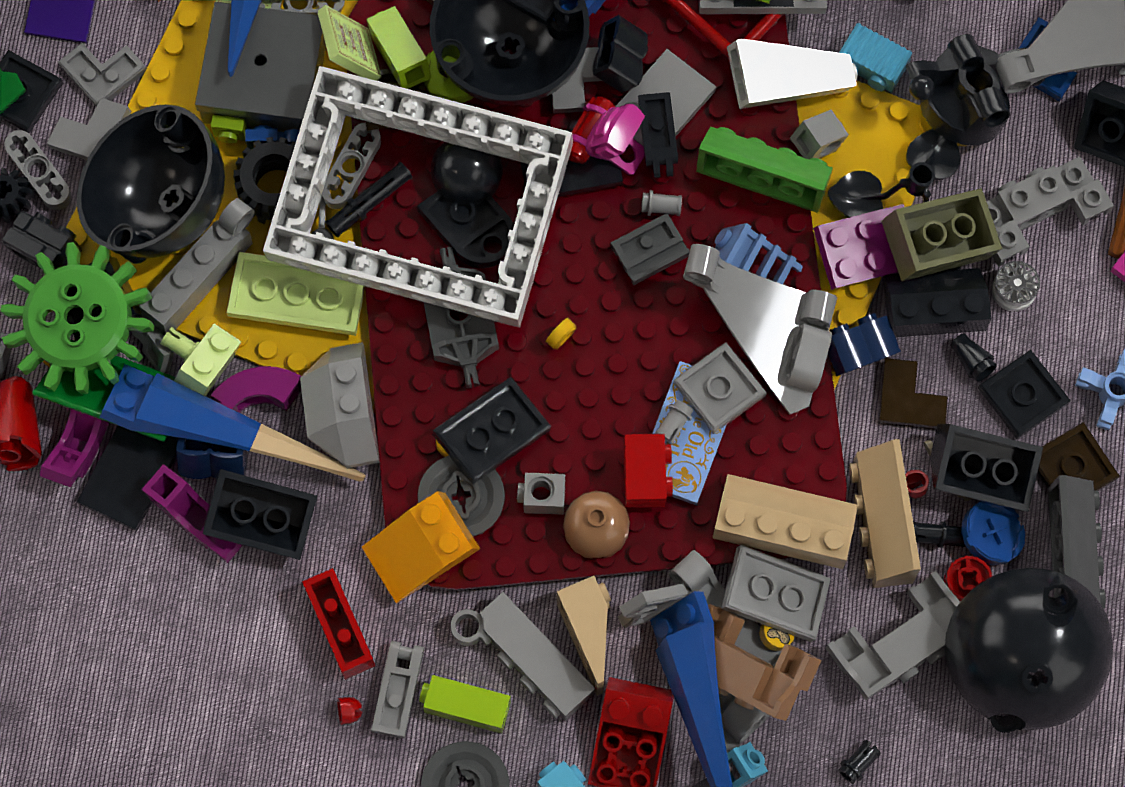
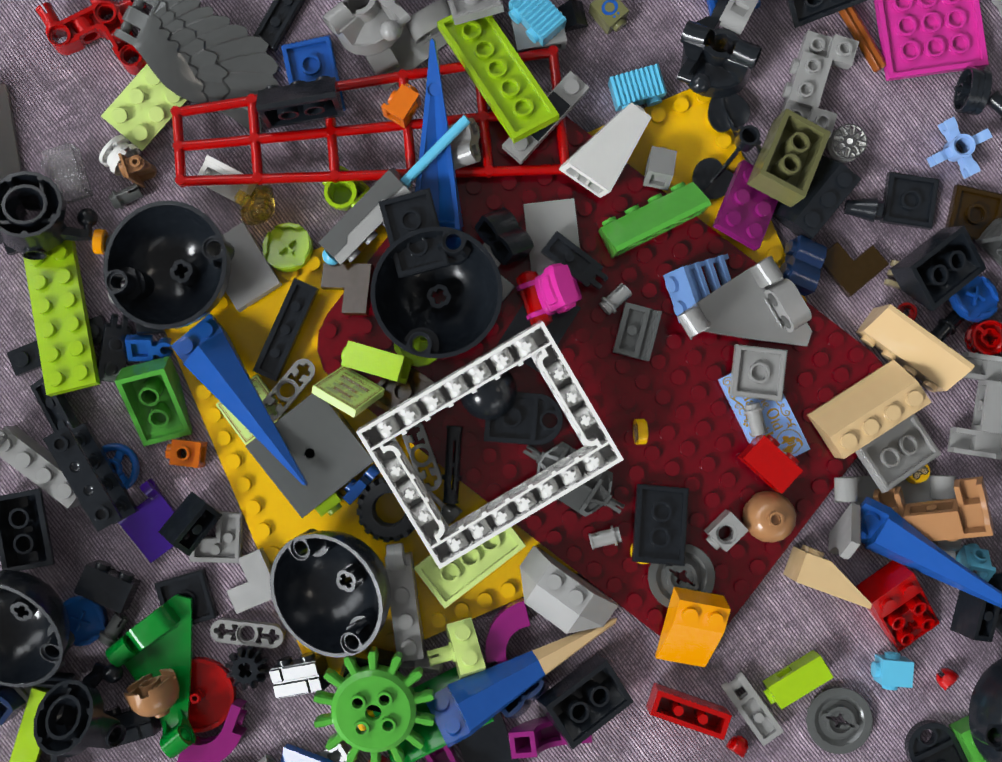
camera: 45 degrees left, 15 degrees up
(96, 27) = (190, 523): none -> black brick
(431, 393) = (605, 537): none -> light grey pin
(530, 653) = (799, 618): light grey hinge -> none

